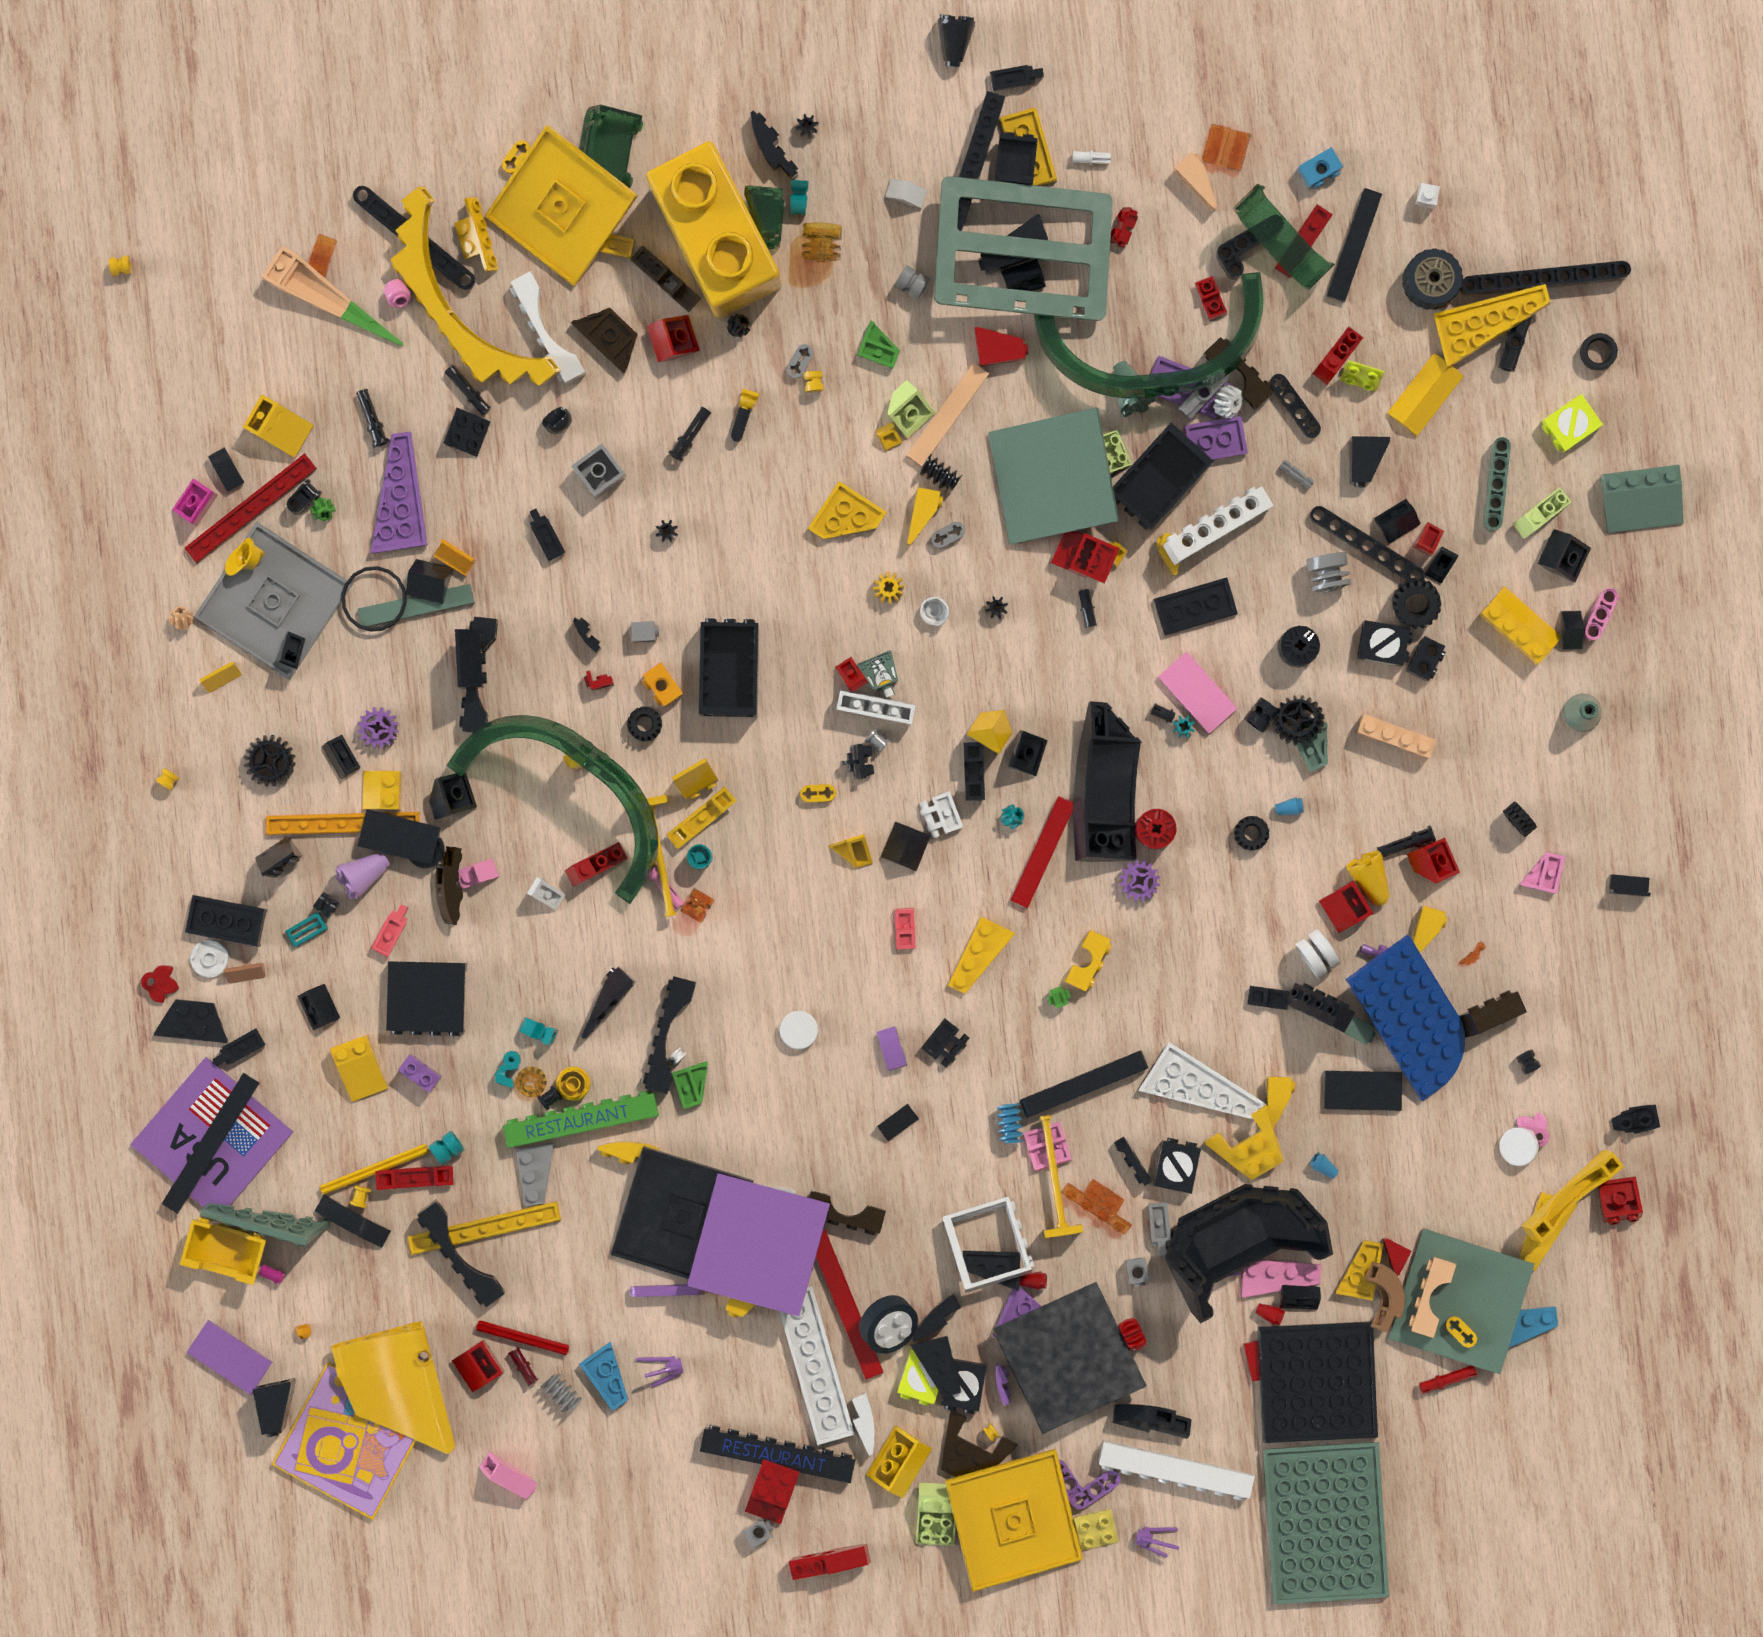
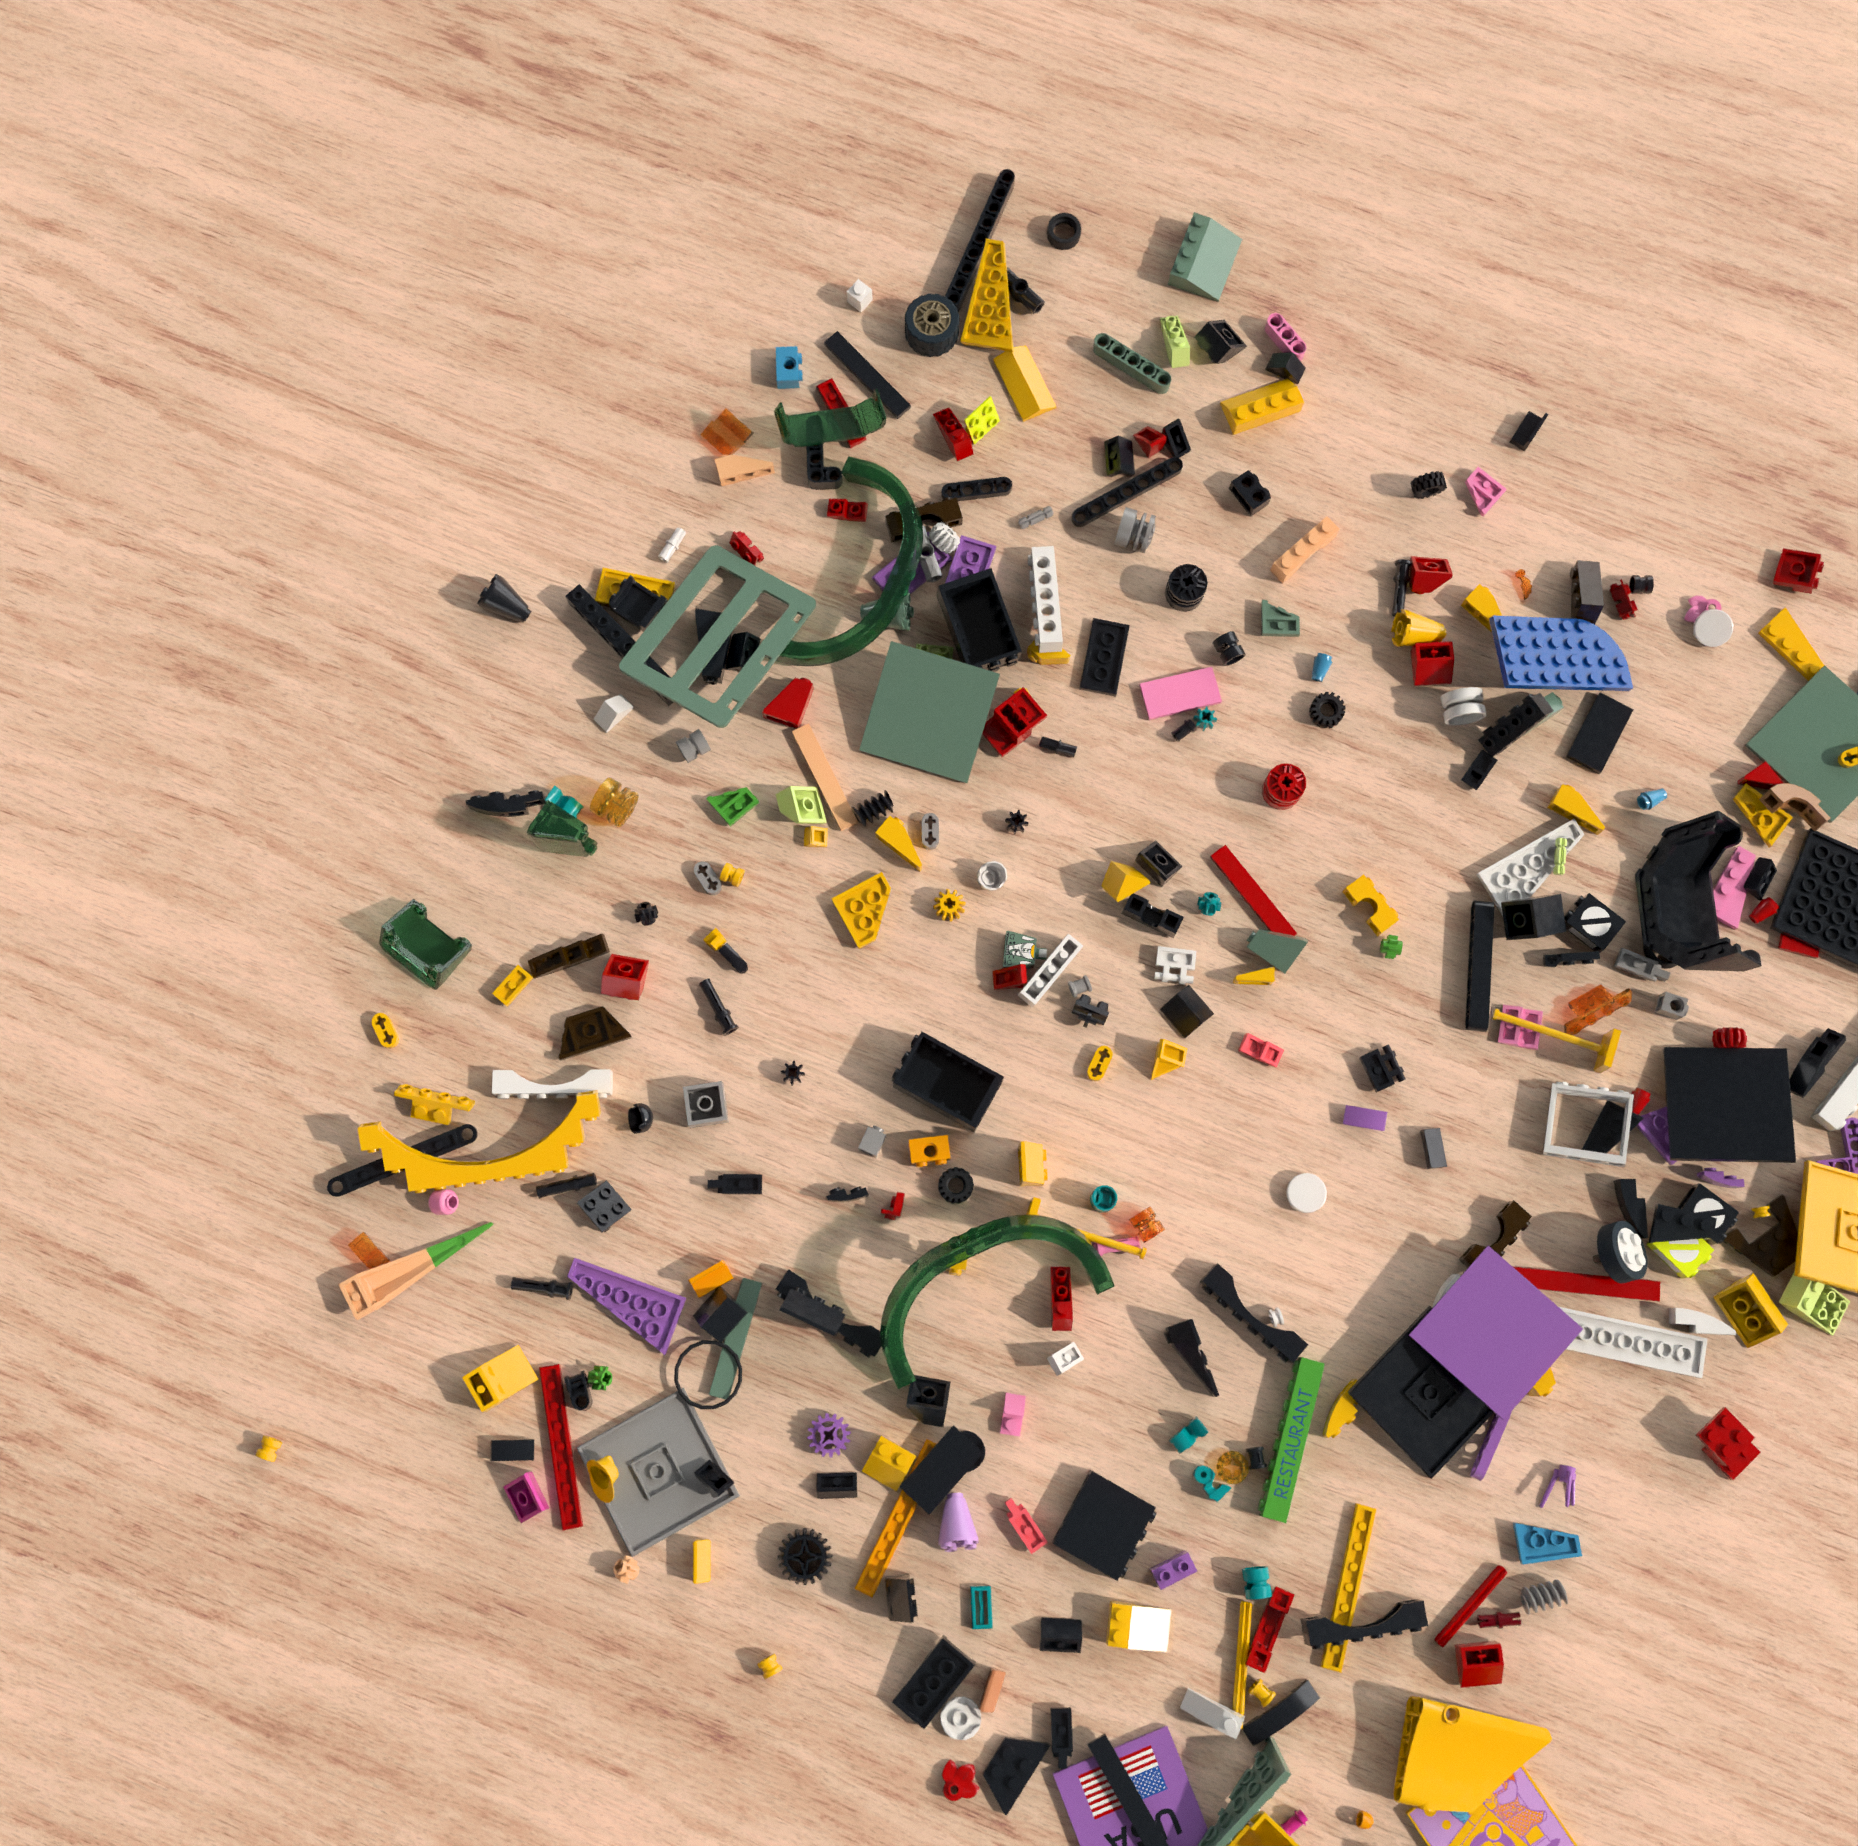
camera: 65 degrees left, 10 degrees down
(322, 1164) = (1213, 1713): none -> white slope
(327, 909) = (972, 1572): black wheel -> none
(447, 892) = (1017, 1451): dark brown slope -> none
(508, 1476) = (1598, 1692): bright pink slope -> none
(534, 1172) = (1317, 1509): light grey wing -> none
(561, 205) = (450, 1010): yellow tile -> none
(573, 1083) = (1254, 1428): yellow piece -> none
(691, 1084) = (1307, 1318): bright green wing -> none
(701, 817) = (1068, 1178): yellow slope -> none
(714, 230) = (549, 884): yellow piece -> none
(752, 1538) = (1767, 1481): light grey brick -> none
(755, 1449) = (1697, 1412): black brick -> none
(802, 123) = (503, 759): black gear -> none
(829, 1561) = (1820, 1423): red brick -> none
(969, 894) = (1259, 977): none -> yellow slope
(981, 950) = (1313, 992): yellow wing -> none
(1002, 895) = (1276, 947): none -> sand green slope
(1010, 1123) = (1485, 1048): dark azure piece -> none
(1015, 77) = (567, 571): black hinge -> none
(1105, 788) = (1225, 812): black slope -> none
(1134, 872) = (1325, 820): medium lavender gear -> none
(1152, 1110) = (1533, 917): none -> black slope
(1221, 1107) = (1560, 856): none -> yellowish green axle
(1255, 1153) = (1614, 850): yellow wing -> none
(1291, 718) = (1256, 607): black gear -> none
(1365, 458) = (1053, 455): black slope -> none
(1372, 952) = (1482, 663): medium lavender arm -> none
(1384, 643) = (1219, 519): black brick -> none
(1416, 587) = (1209, 464): black tyre -> none
(1440, 1272) = (1797, 749): light nougat arch -> none
(1511, 1049) = (1621, 592): none -> red hinge
(1548, 1216) = (1766, 575): yellow arch -> none
(1571, 423) = (1112, 280): neon yellow brick -> none
(1575, 712) = (1362, 390): sand green cone -> none
(1637, 1119) = (1733, 523): black connector -> none

